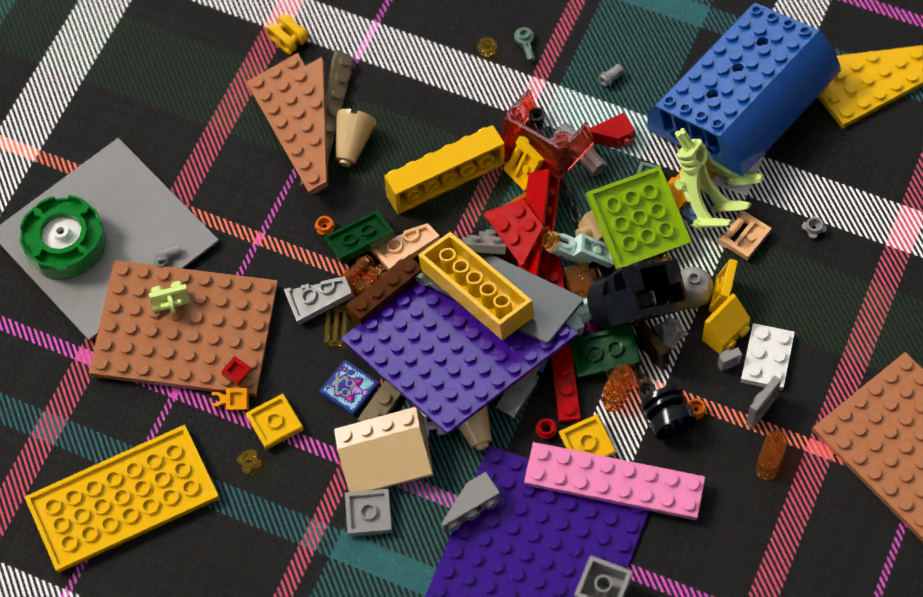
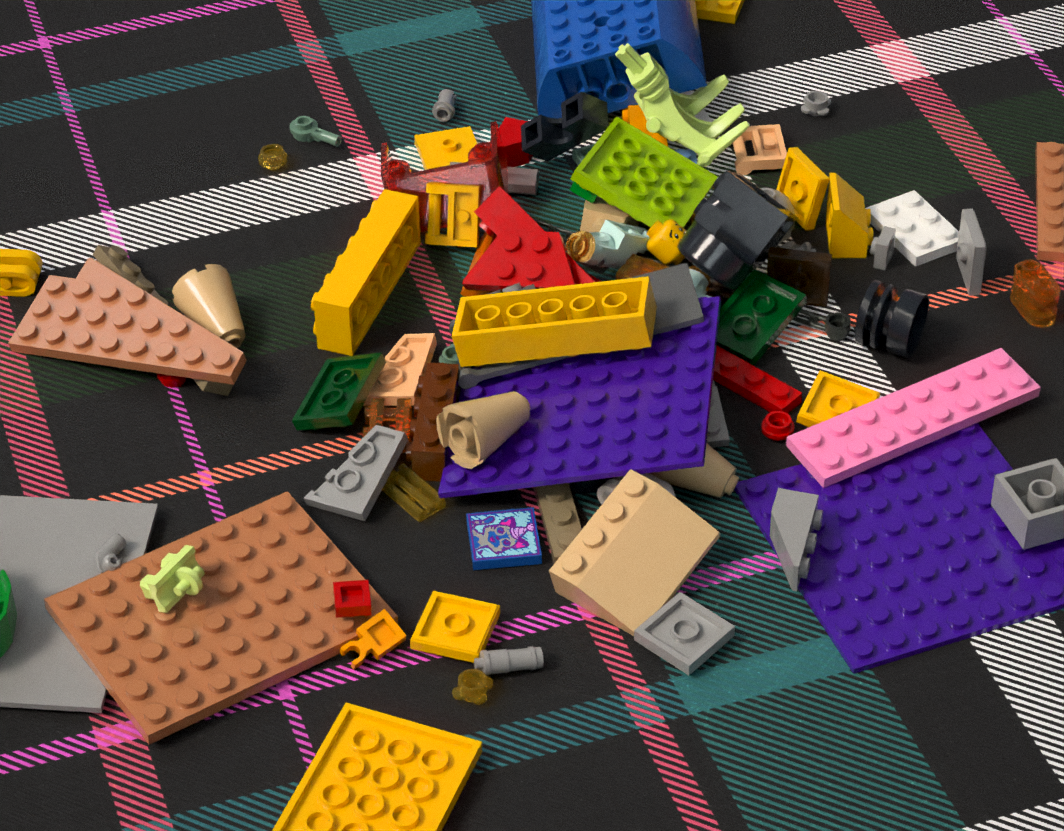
camera: 45 degrees left, 20 degrees down
(276, 460) = (509, 660): none -> light grey piece
(322, 221) = (278, 411): orange plate -> none
(385, 320) = (481, 426): none -> tan cone
(581, 108) = (445, 146): none -> yellow plate
(606, 265) = (664, 241): none -> yellow head
(618, 388) = (807, 339): clear orange brick -> none
(633, 149) = (581, 119): none -> black arch

